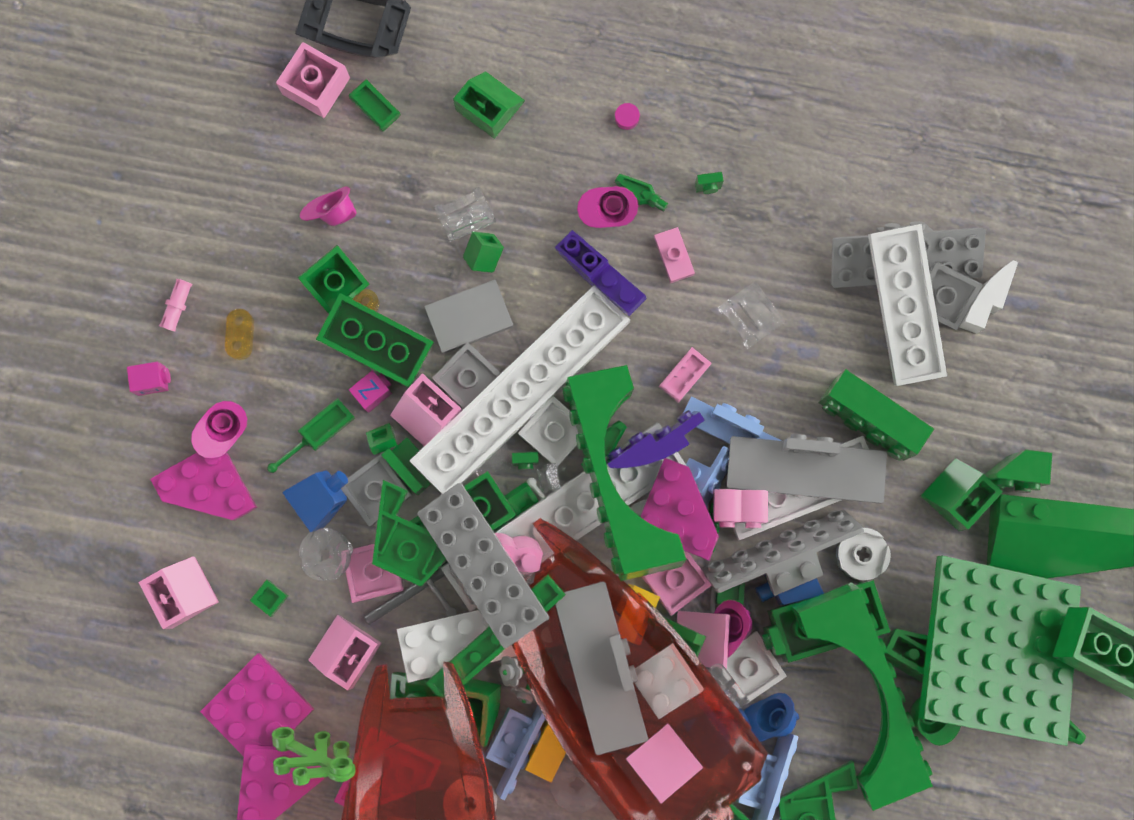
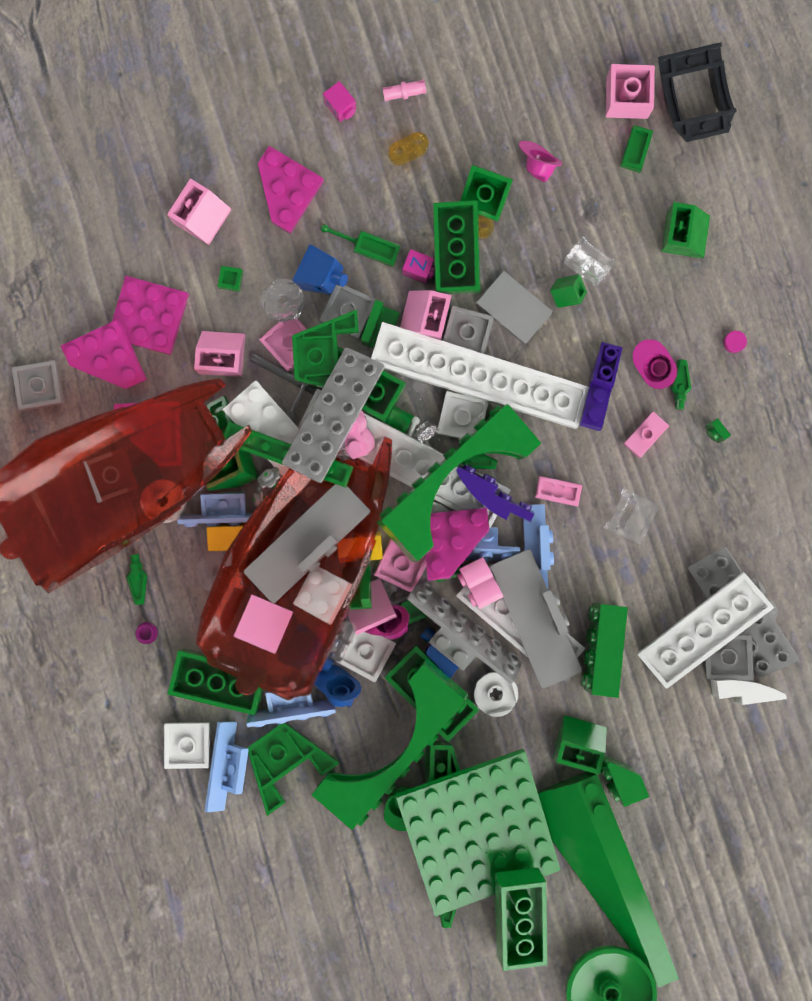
camera: 60 degrees right, 5 degrees up
(219, 429) = (330, 172): dark pink piece -> none
(337, 769) = (133, 390): bright green plant -> none
(381, 439) = (388, 294): green plate -> none
(525, 460) = (428, 407): green plate -> none
(773, 640) = (395, 658): green plate -> none

